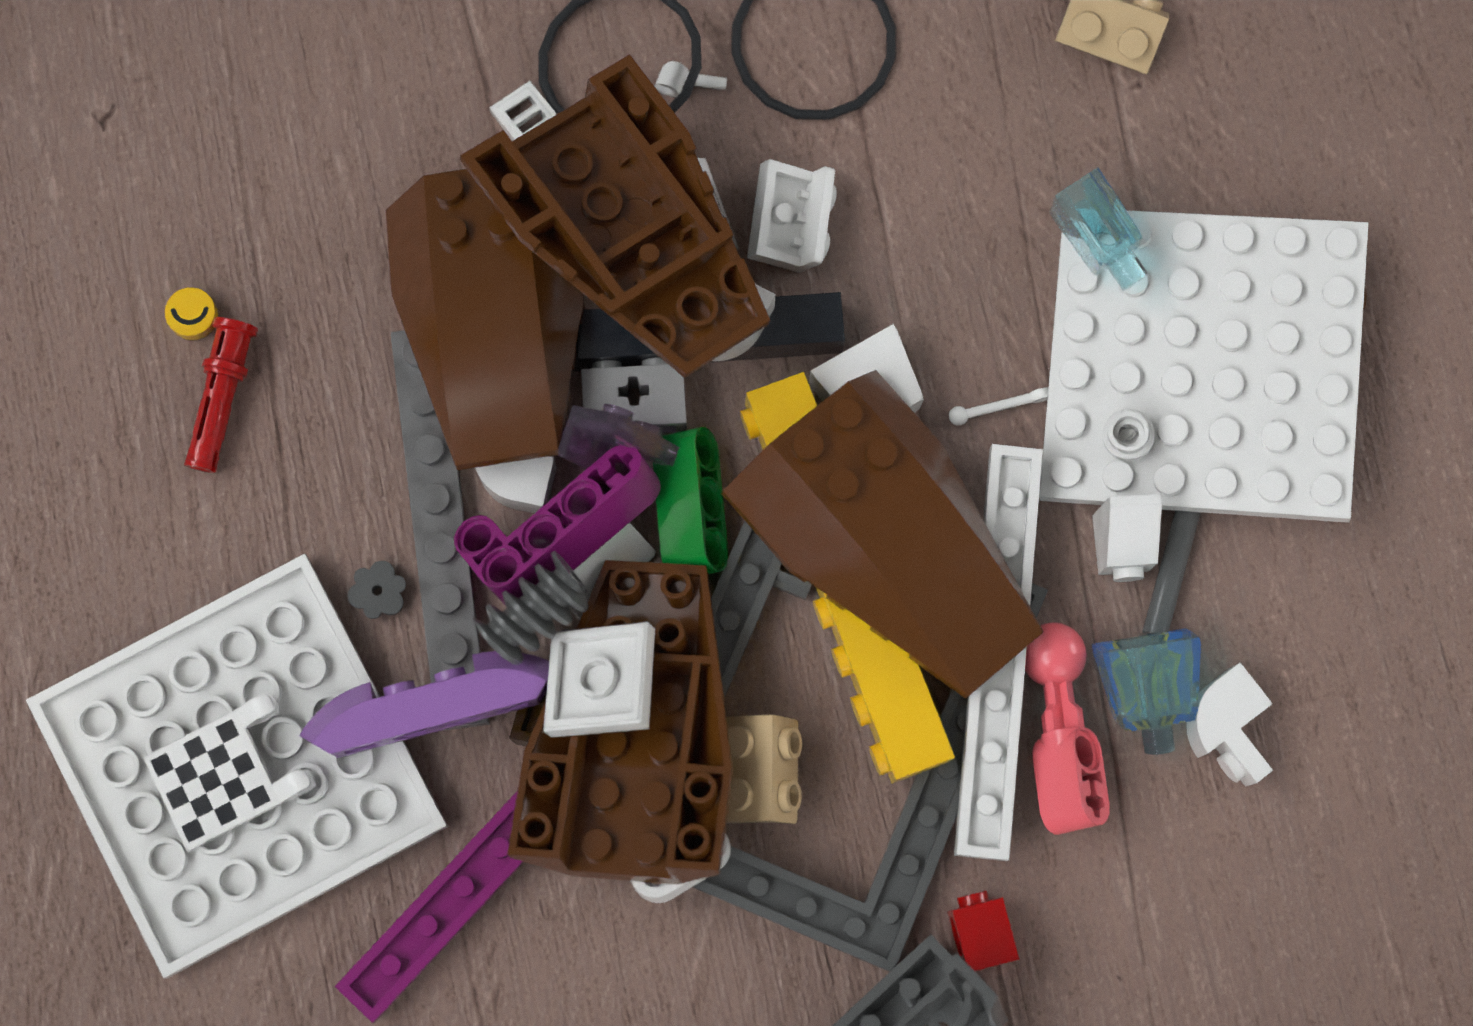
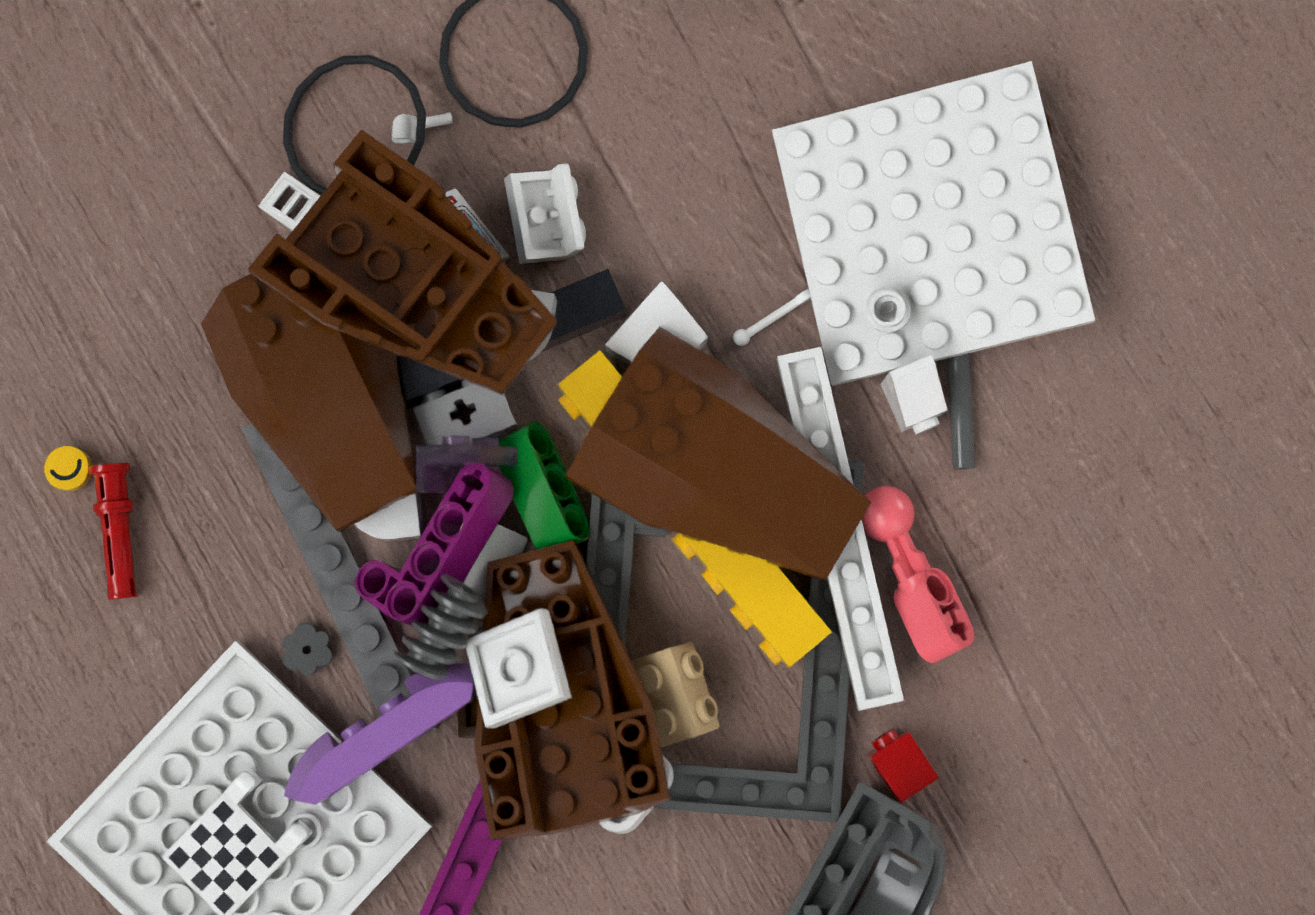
camera: 10 degrees left, 5 degrees up
(1093, 209) = (794, 129): clear light blue torso -> none
(1152, 683) = (974, 511): clear light blue torso -> none
(1222, 712) = (1038, 521): white brick -> none

